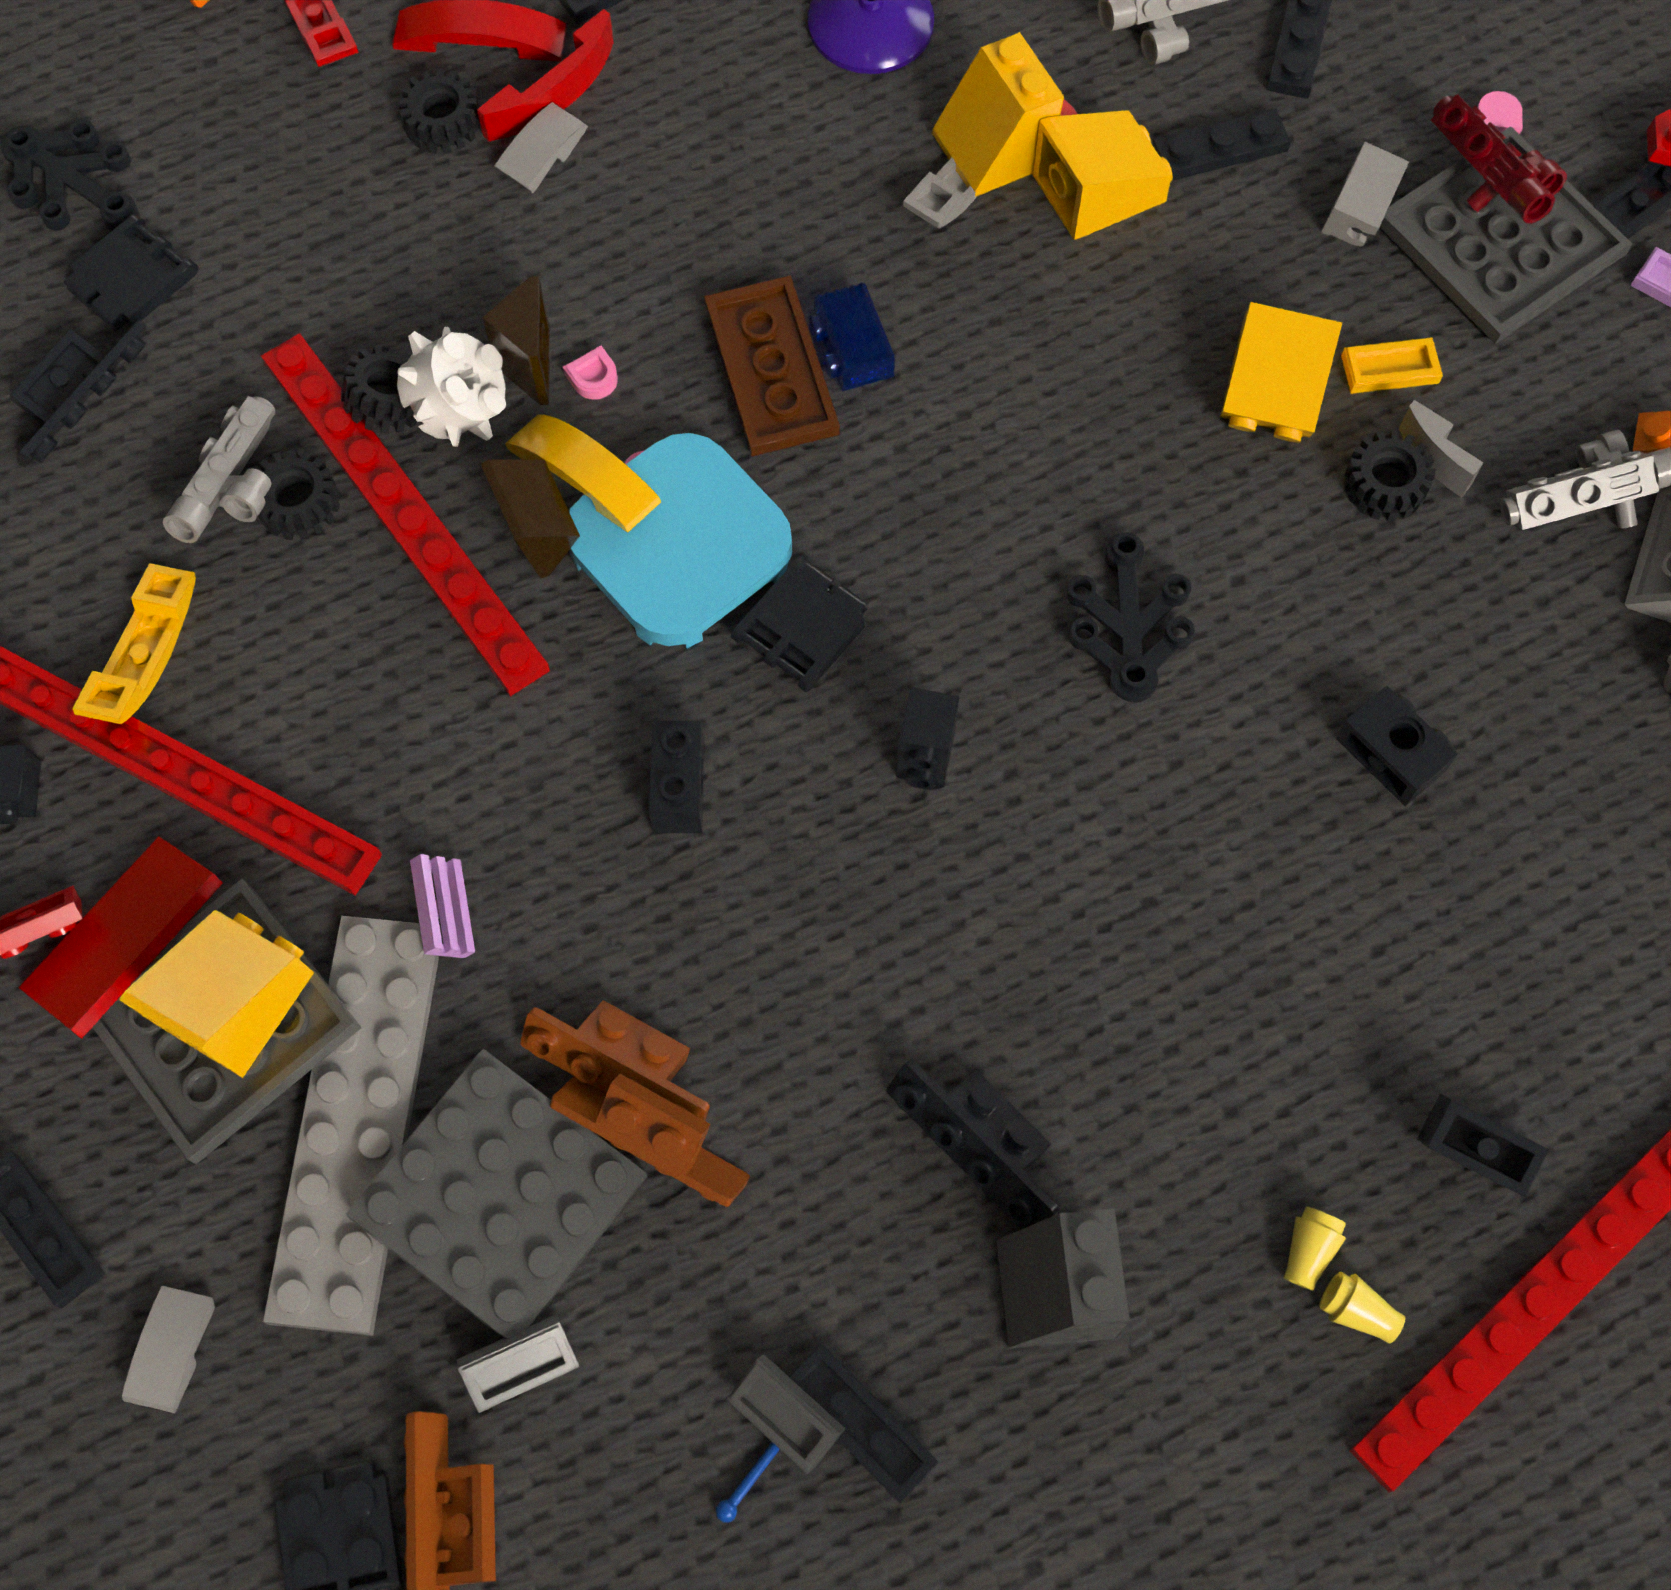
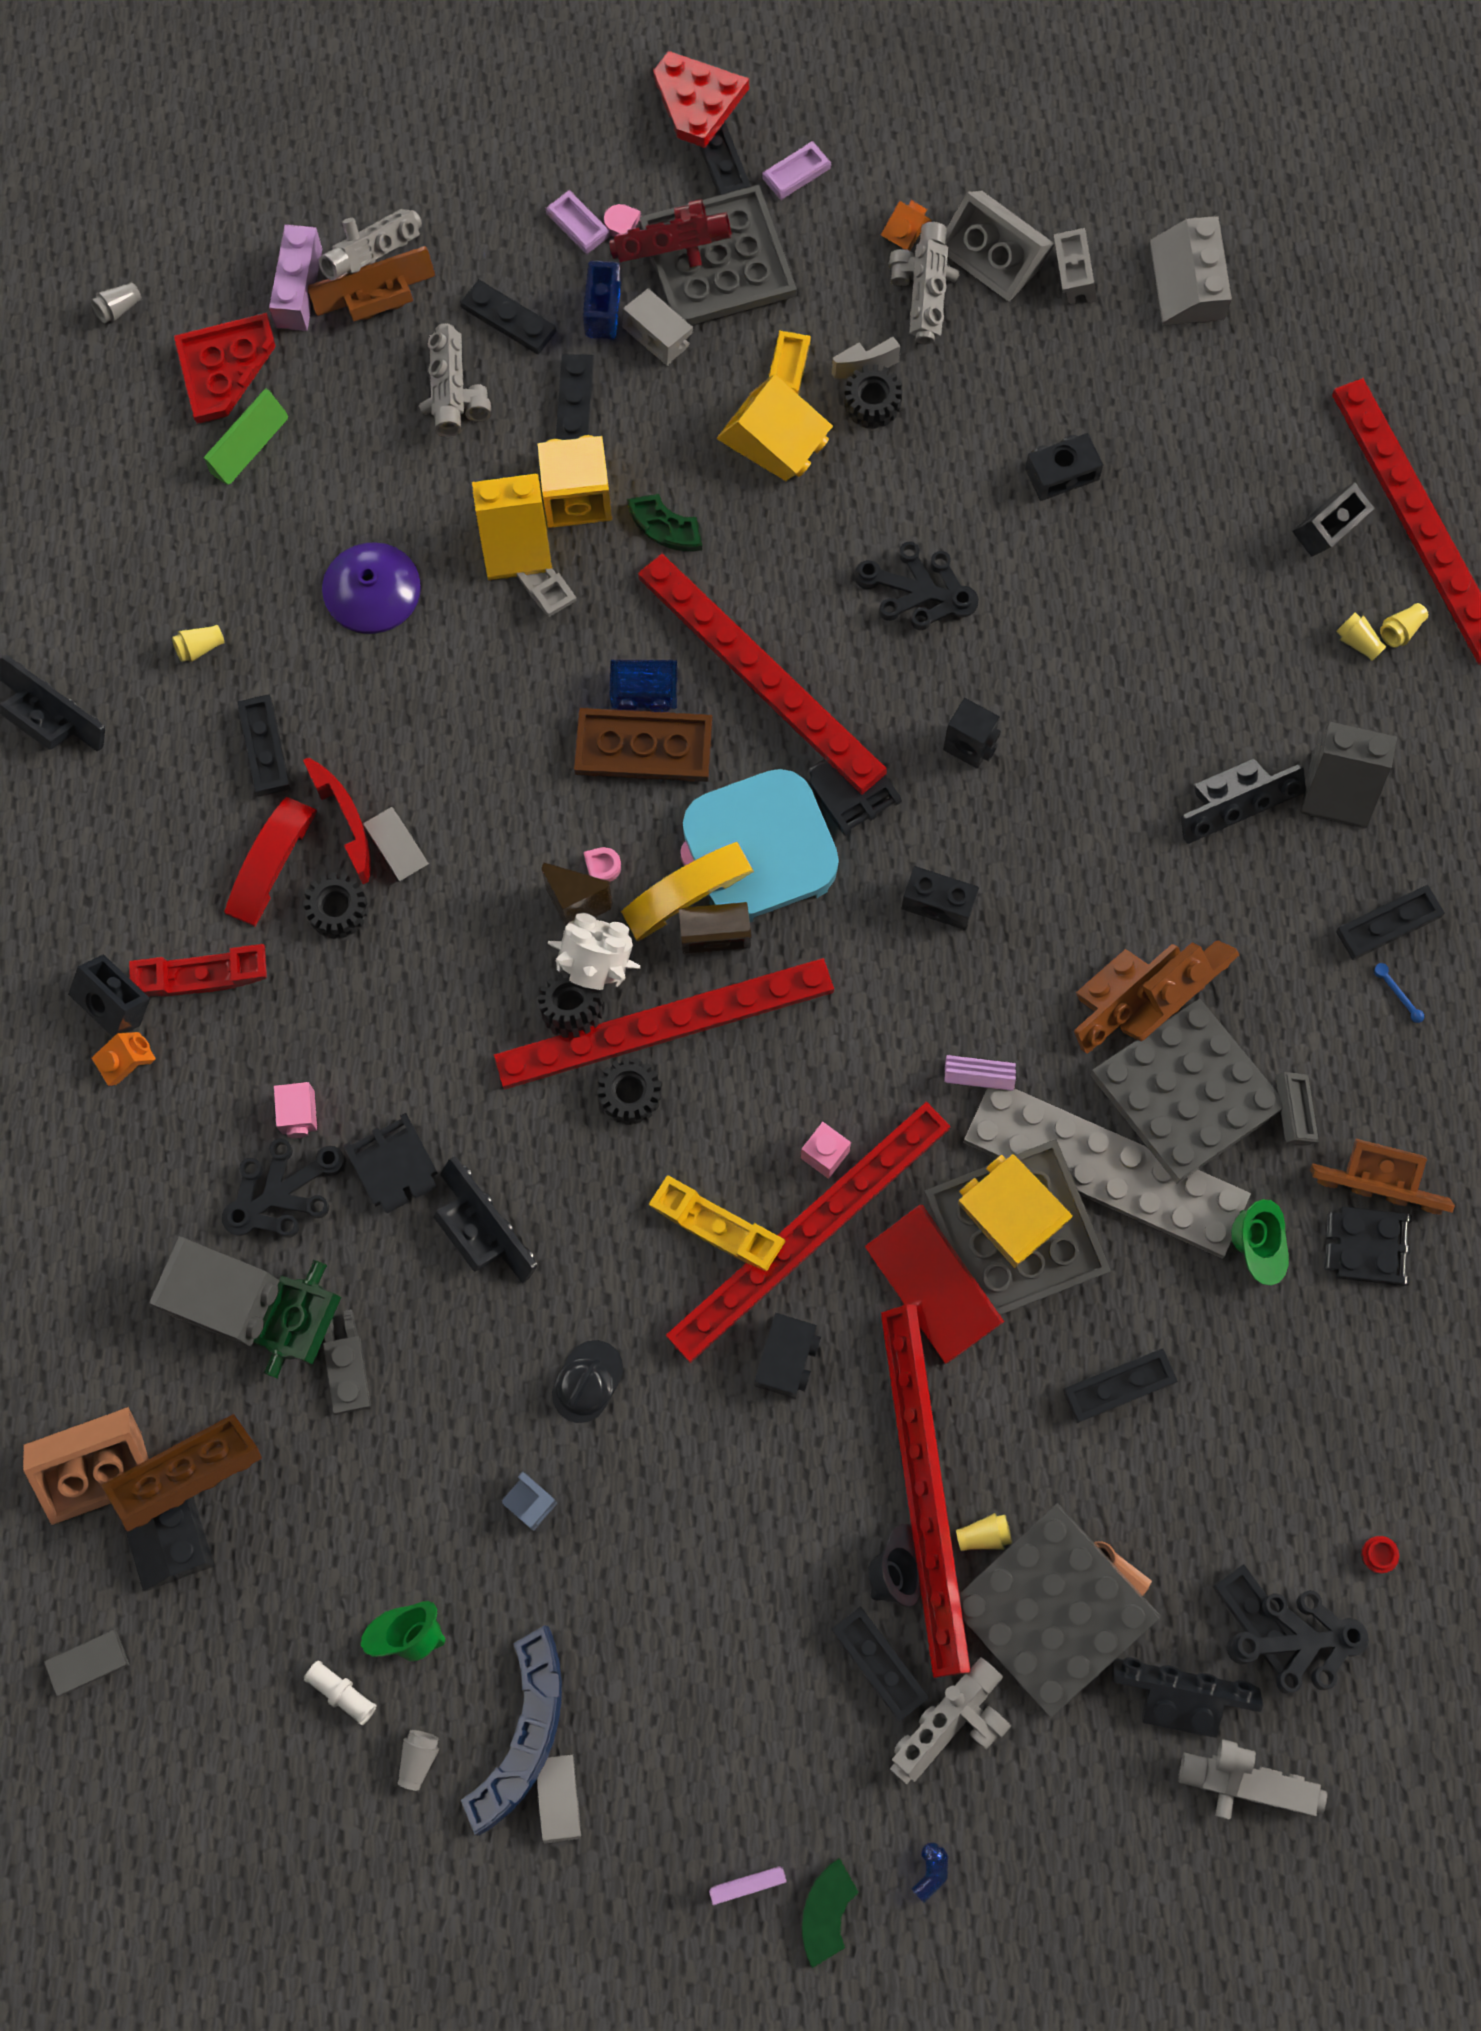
camera: 70 degrees left, 5 degrees up
(167, 152) = (295, 1109): none -> bright pink brick
(167, 1349) = (1224, 1319): light grey slope -> none
(218, 478) = (606, 1136): light grey piece -> none
(273, 743) = (825, 1150): none -> bright pink brick
(286, 1368) = (1262, 1241): none -> green piece
(785, 1414) = (1374, 960): dark grey tile -> none
(917, 471) = (762, 674): none -> red plate
(1090, 297) = (663, 525): none -> dark green tile
(1375, 115) = (602, 299): none -> clear blue brick
(1473, 67) = (578, 222): none -> lavender tile

